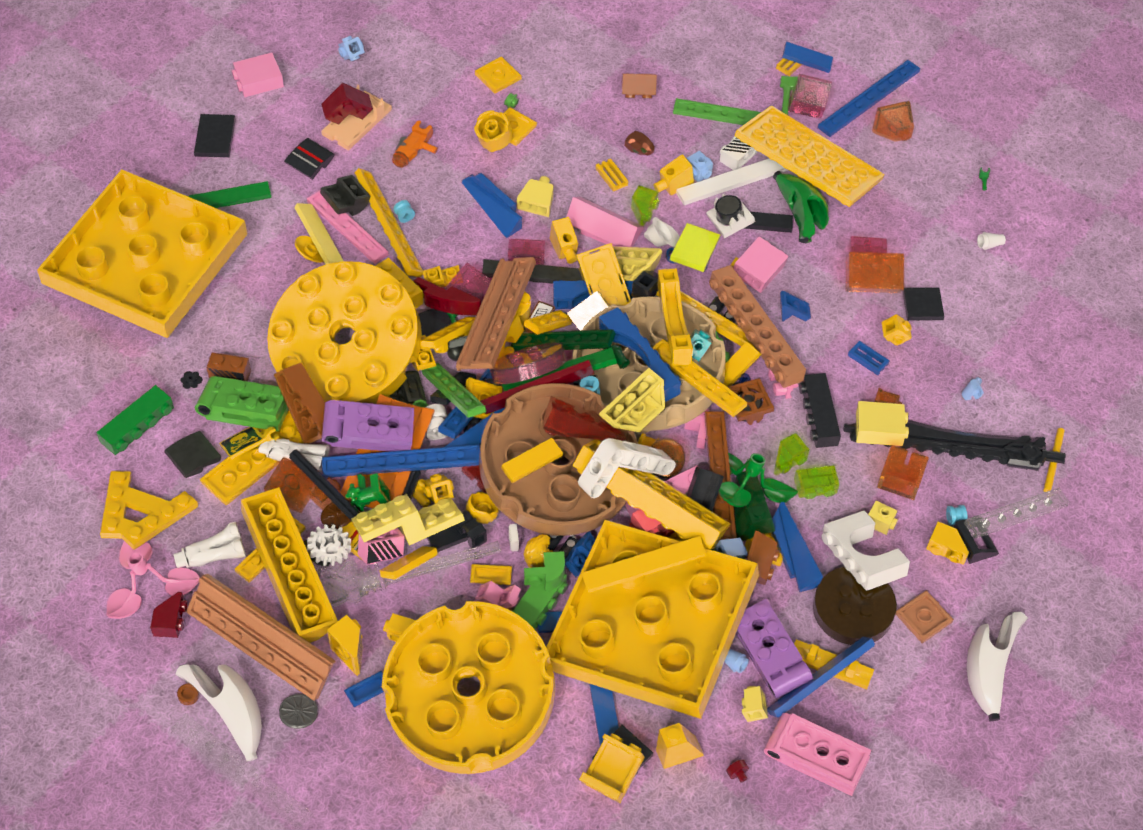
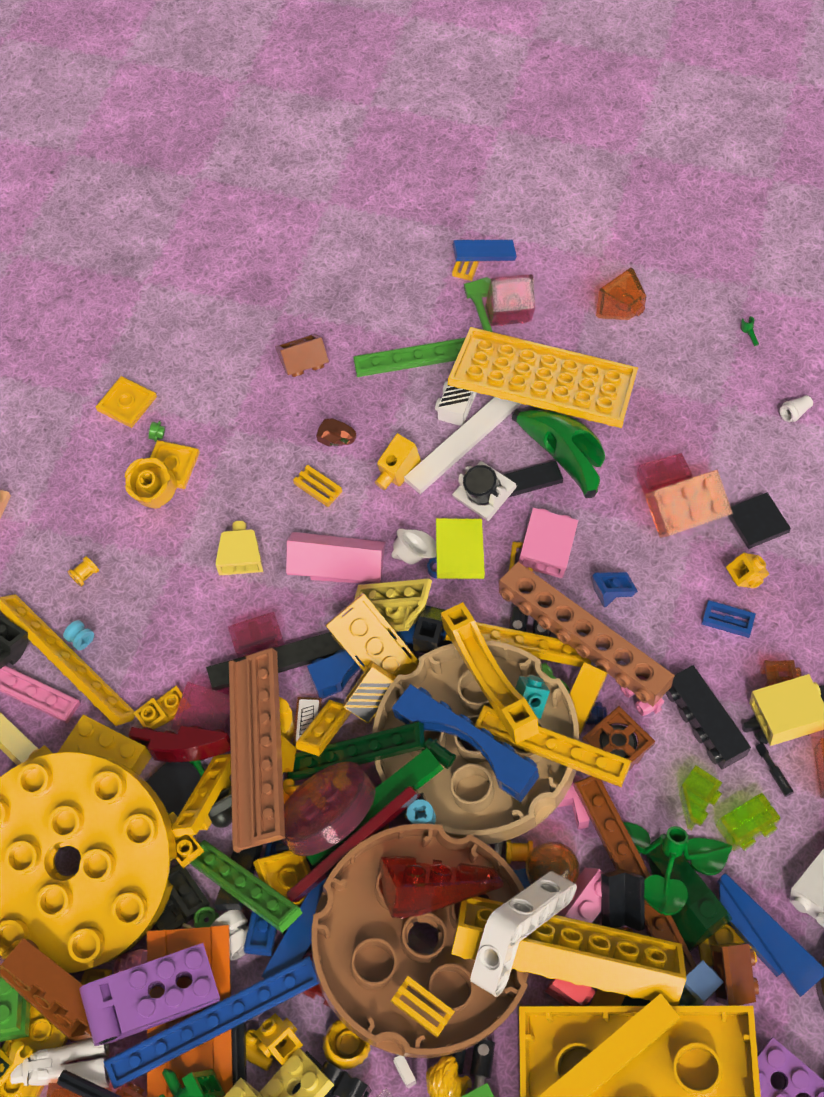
camera: 15 degrees left, 5 degrees up
(409, 145) = (52, 538): orange piece -> none
(423, 173) = (83, 571): none -> yellow bush
(494, 203) = (189, 580): blue wedge -> none
(532, 460) = (393, 965): yellow tile -> none
(532, 476) = (428, 996): none -> yellow tile
(564, 239) = (297, 601): yellow torso -> none
(579, 554) = (502, 1055): blue slope -> none
(637, 403) = (497, 827): light yellow wedge -> none
(643, 203) = (372, 512): clear neon green slope -> none
(701, 166) = (422, 435): light blue brick -> none
(853, 461) = (775, 771): none -> black piece
(868, 98) = (574, 277): blue tile -> none

